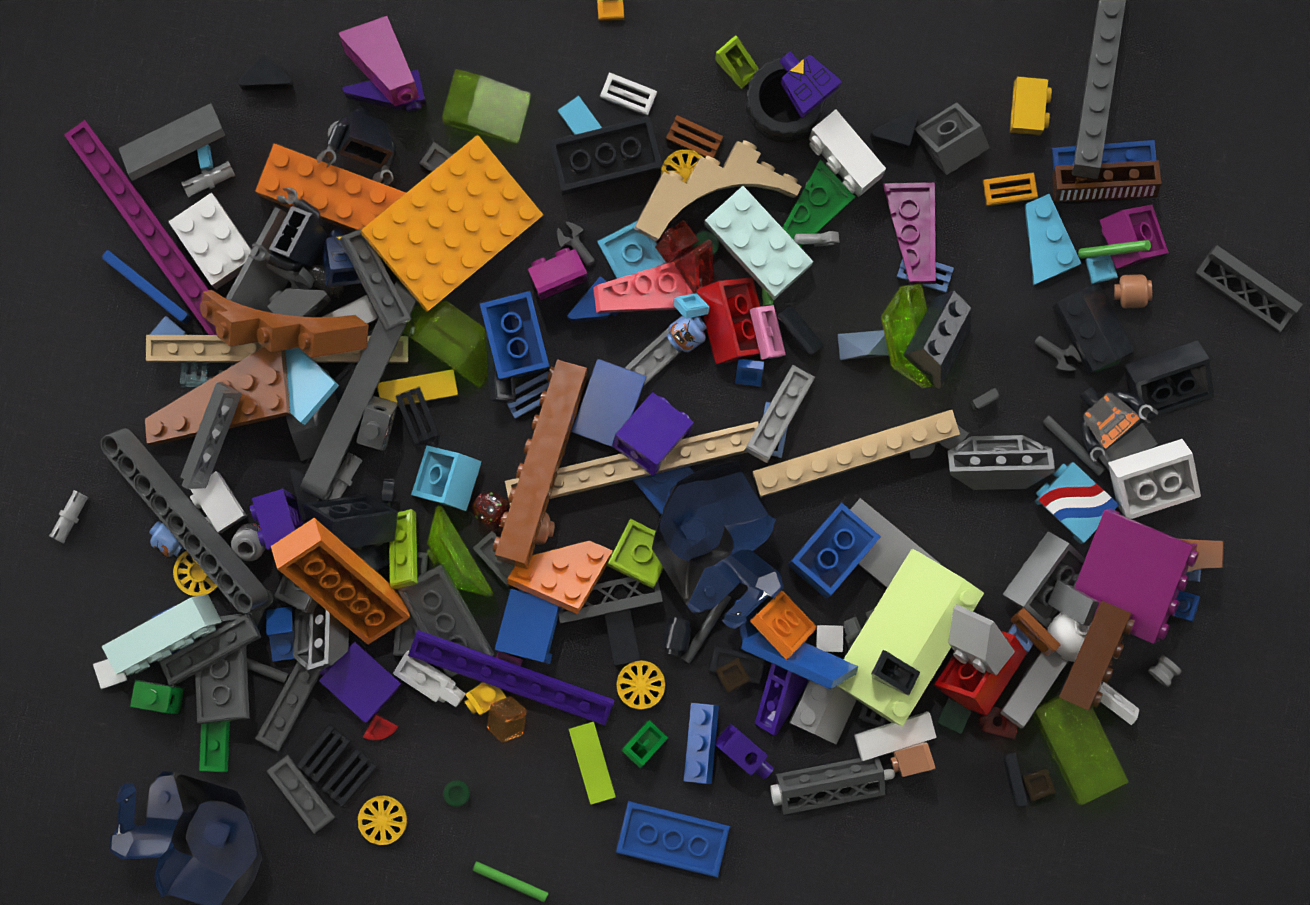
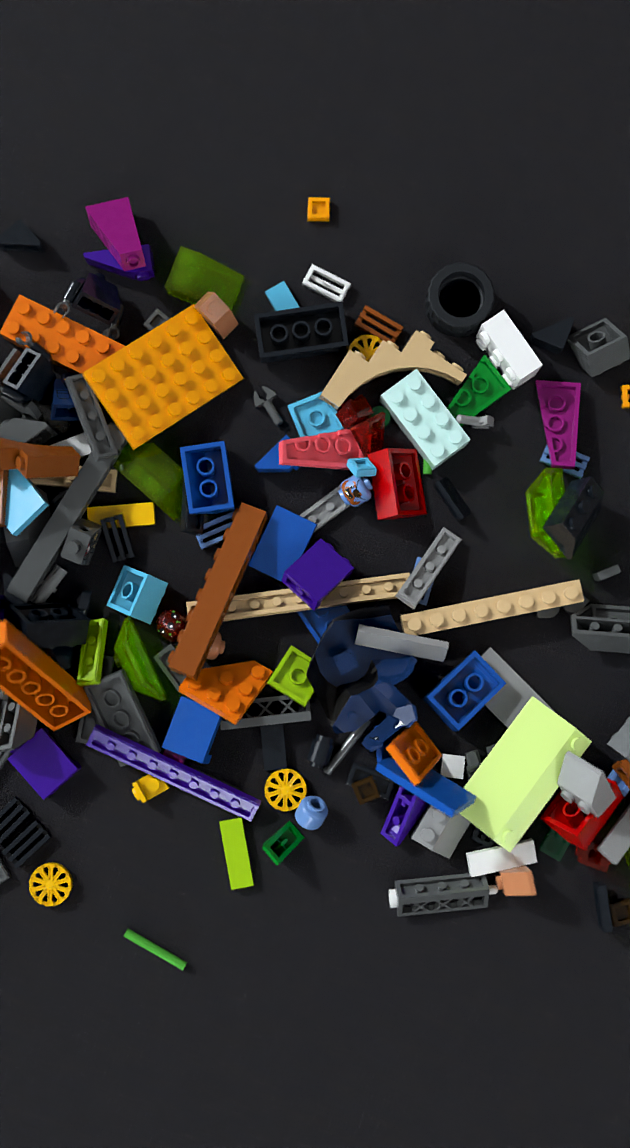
camera: 15 degrees right, 0 degrees up
(379, 729) = (57, 804): red tile -> none
(428, 680) = (103, 768): white hinge -> none
(456, 793) = (117, 867): dark green tile -> none
(504, 143) = (216, 314): none -> nougat slope
(506, 719) = (166, 808): clear orange panel -> none
(557, 273) = (250, 429): magenta slope -> none
(673, 706) = (311, 812): none -> medium blue head
(673, 839) = (299, 926): blue tile -> none
(701, 743) = (332, 846): plate -> none
(736, 62) = (420, 264): lime slope -> none
(737, 746) = (368, 858): dark purple torso -> none
(749, 372) = (406, 529): blue plate -> none
(756, 502) = (401, 643): none -> light grey tile
(767, 332) = (424, 496): bright pink tile -> none
(807, 82) = (481, 283): dark purple torso -> none
(862, 345) = (506, 516): sand blue slope -> none
(895, 673) = (509, 806): black slope -> none

